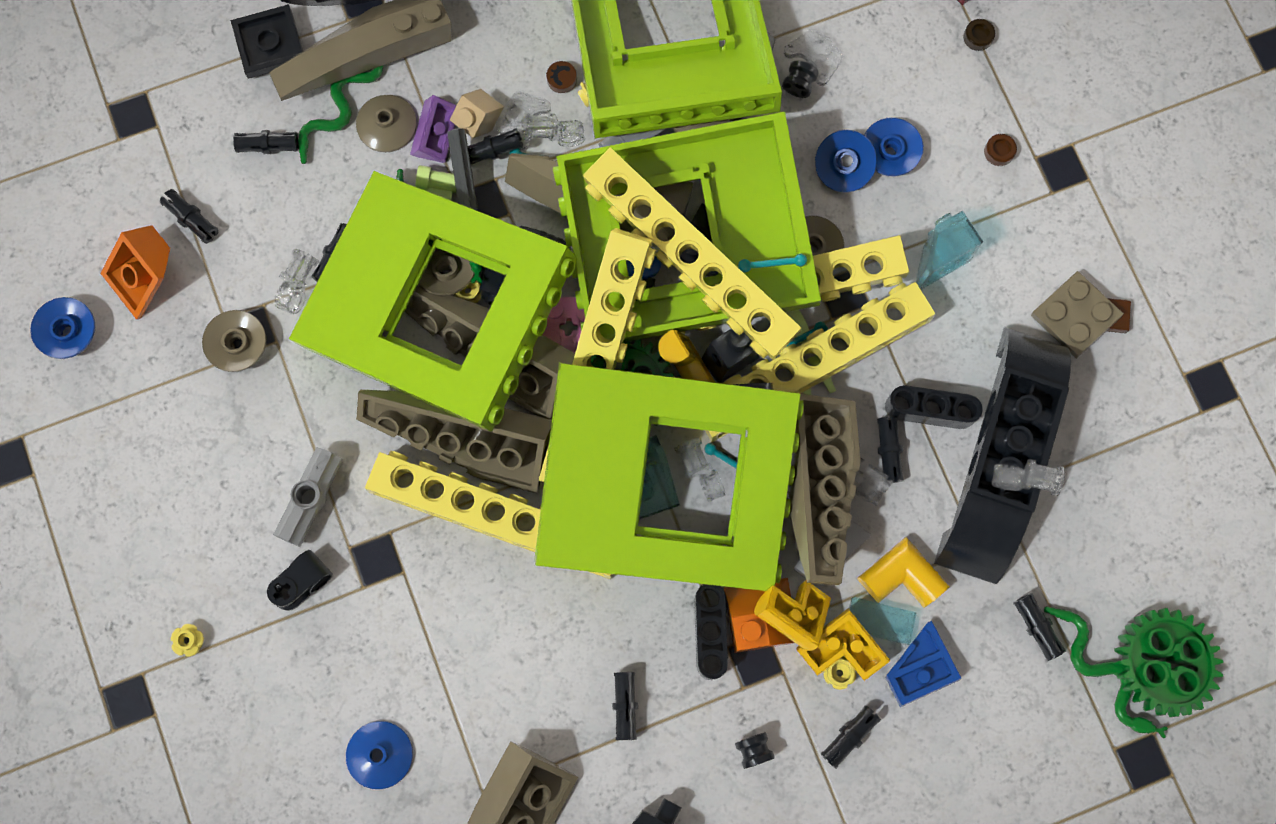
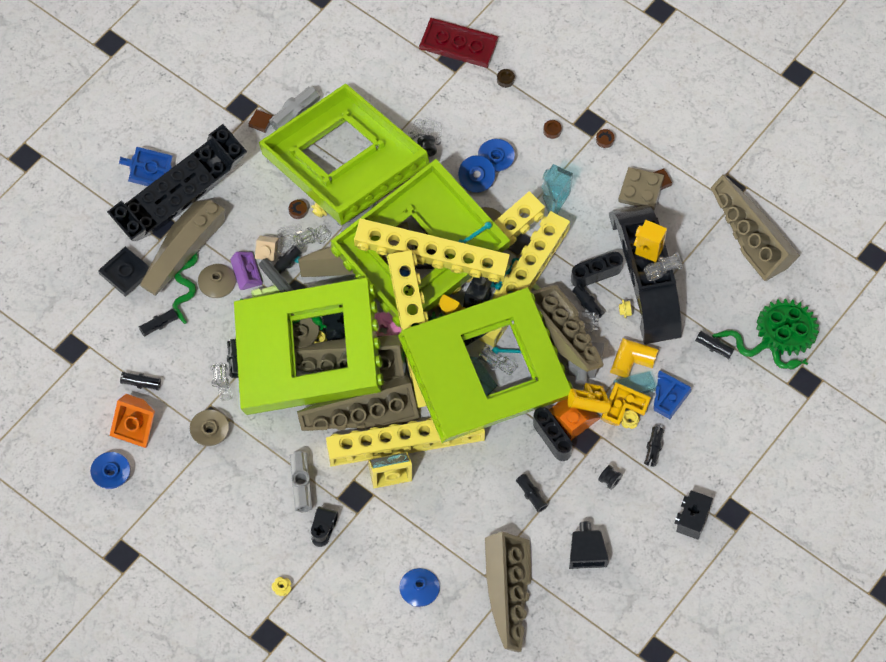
camera: 30 degrees left, 15 degrees down
(442, 550) = (390, 469): none -> light yellow slope
(938, 492) = (625, 308): none -> light yellow plate
(1032, 426) = (650, 240): none -> yellow brick
(1070, 206) = (605, 138): none -> reddish brown tile
(1209, 486) = (758, 237): none -> dark tan wedge

